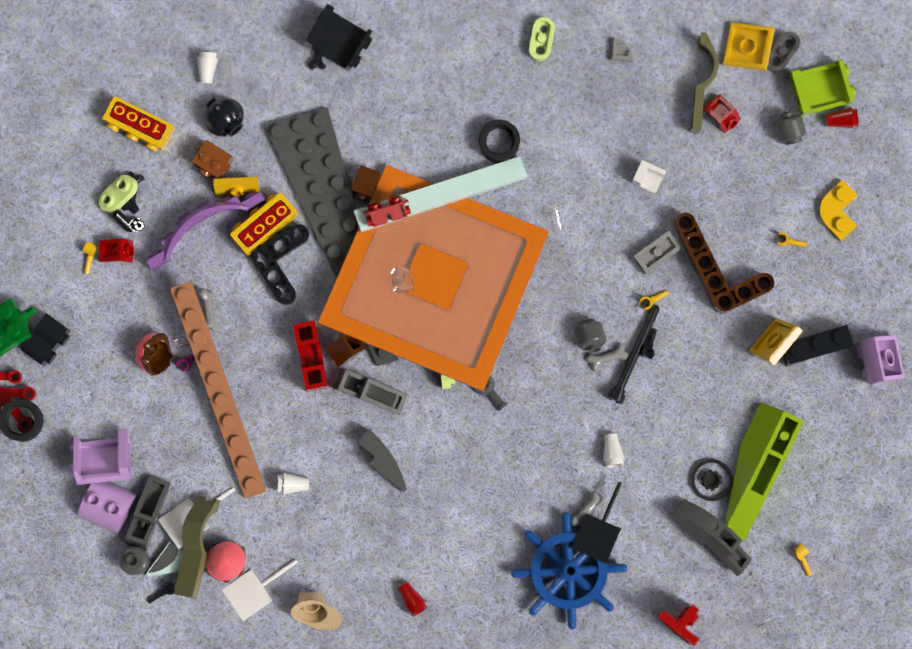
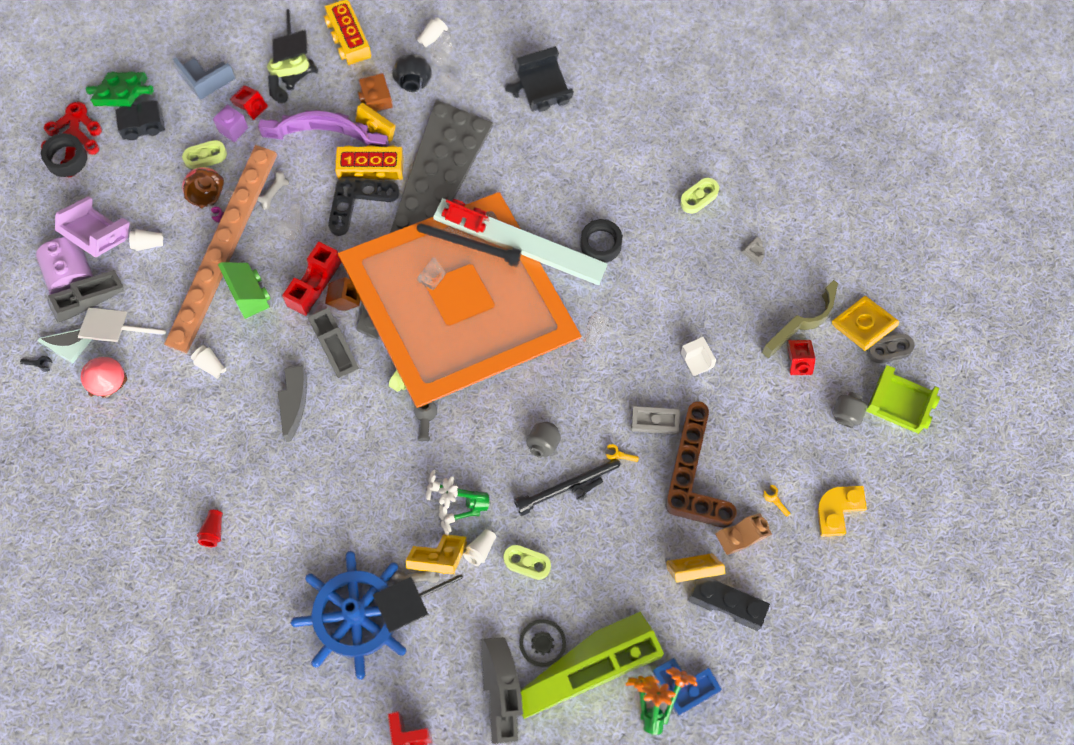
camera: 40 degrees right, 15 degrees down
(62, 263) = (204, 82): none -> sand blue panel
(89, 249) = (231, 86): yellow hand -> none
(104, 176) = (291, 44): none -> black piece
(122, 282) = (230, 123): none -> medium lavender brick
(123, 324) = (204, 153): none -> yellowish green plate
(134, 560) = (39, 320): dark grey head -> none
(149, 431) = (145, 239): none -> white cone
(194, 554) = (83, 352): olive piece -> none
(248, 593) = (97, 418): white piece -> none
(267, 405) = (245, 287): none -> bright green slope
(315, 612) = (128, 471): tan piece -> none
(365, 183) = (471, 189): reddish brown brick -> none
(445, 213) = (511, 256): none -> black piece
(580, 421) = (475, 500): none -> plant
(596, 485) = (440, 559): none -> yellow plate
(597, 360) = (532, 465): light grey piece -> none
(654, 434) = (527, 562): none -> yellowish green plate
(787, 286) = (743, 534): none -> medium nougat slope
(829, 465) = (654, 718): none -> plant
(832, 434) = (689, 695): none -> blue plate
(844, 118) = (903, 438): red cone -> none
(880, 359) = (777, 661): lavender brick -> none

